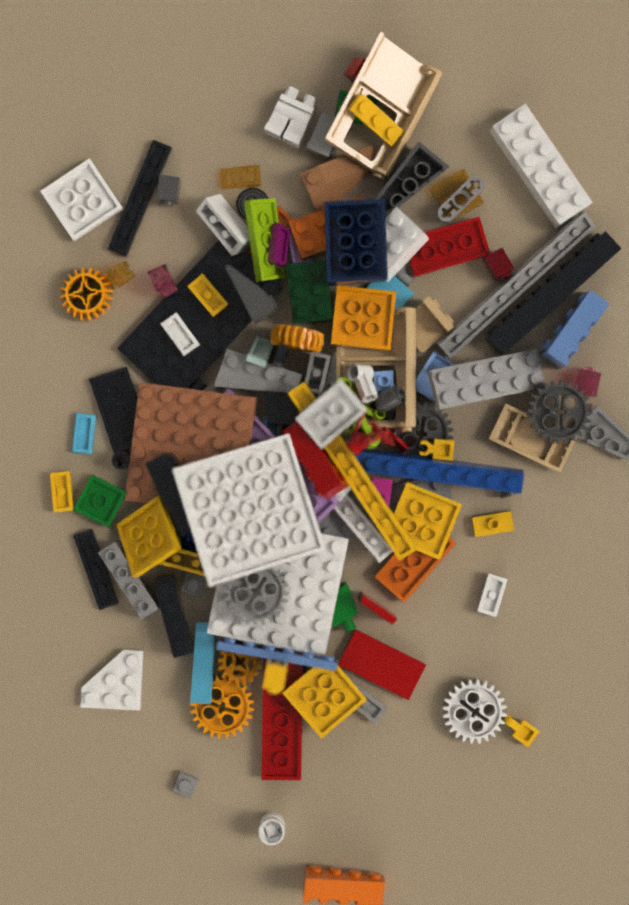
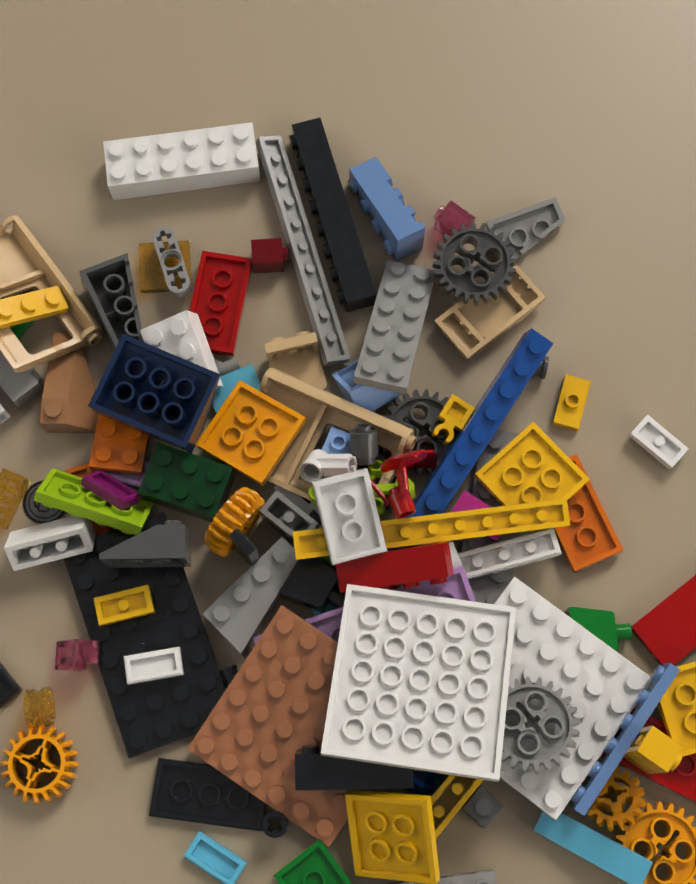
camera: 65 degrees left, 15 degrees down
(174, 615) = (512, 856): black brick -> none
(260, 352) = (227, 574): light aqua tile -> none
(377, 608) = (617, 583): red tile -> none

